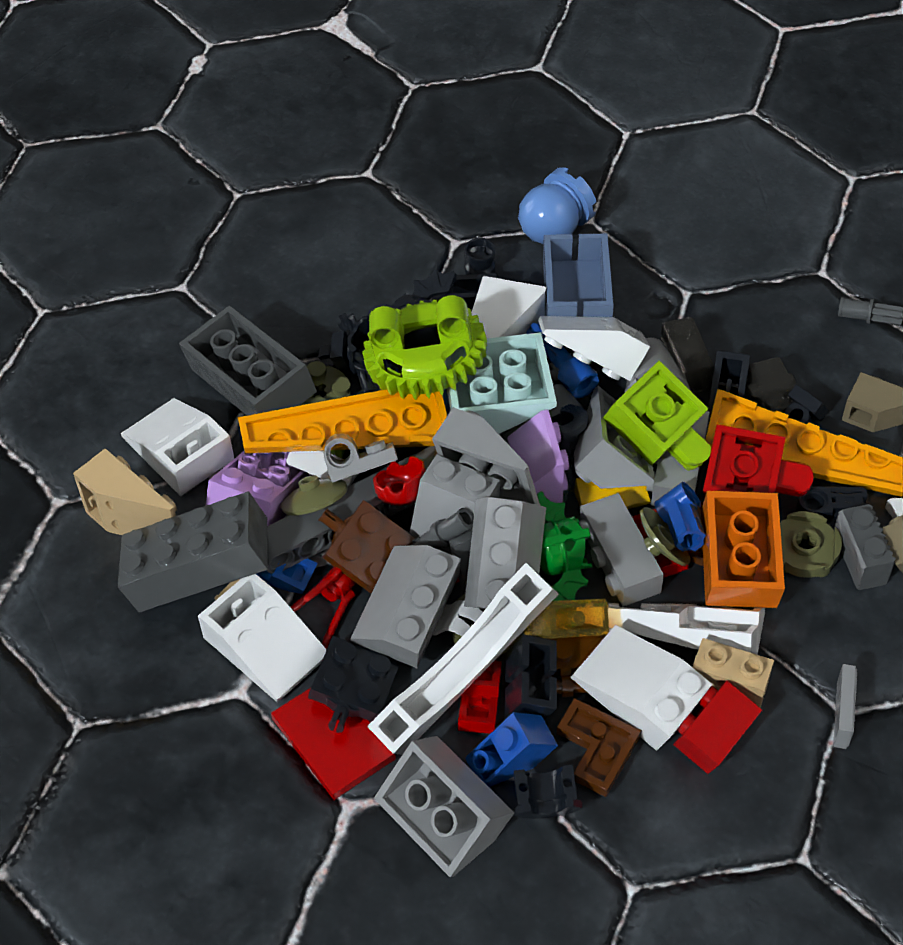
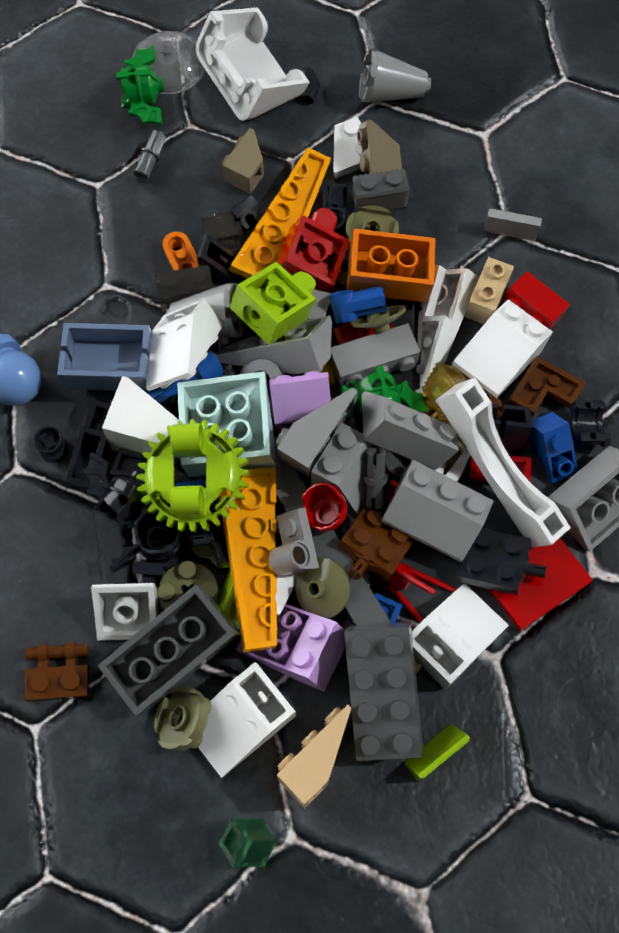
camera: 90 degrees left, 15 degrees up
(53, 457) = (247, 842): none -> clear green panel
(131, 627) = (437, 751): none -> lime slope
(183, 388) = (189, 732): none -> olive plate
(226, 289) = (57, 682): none -> reddish brown plate
(298, 329) = (123, 609): none -> white slope
(736, 343) = (184, 257): none -> orange plate

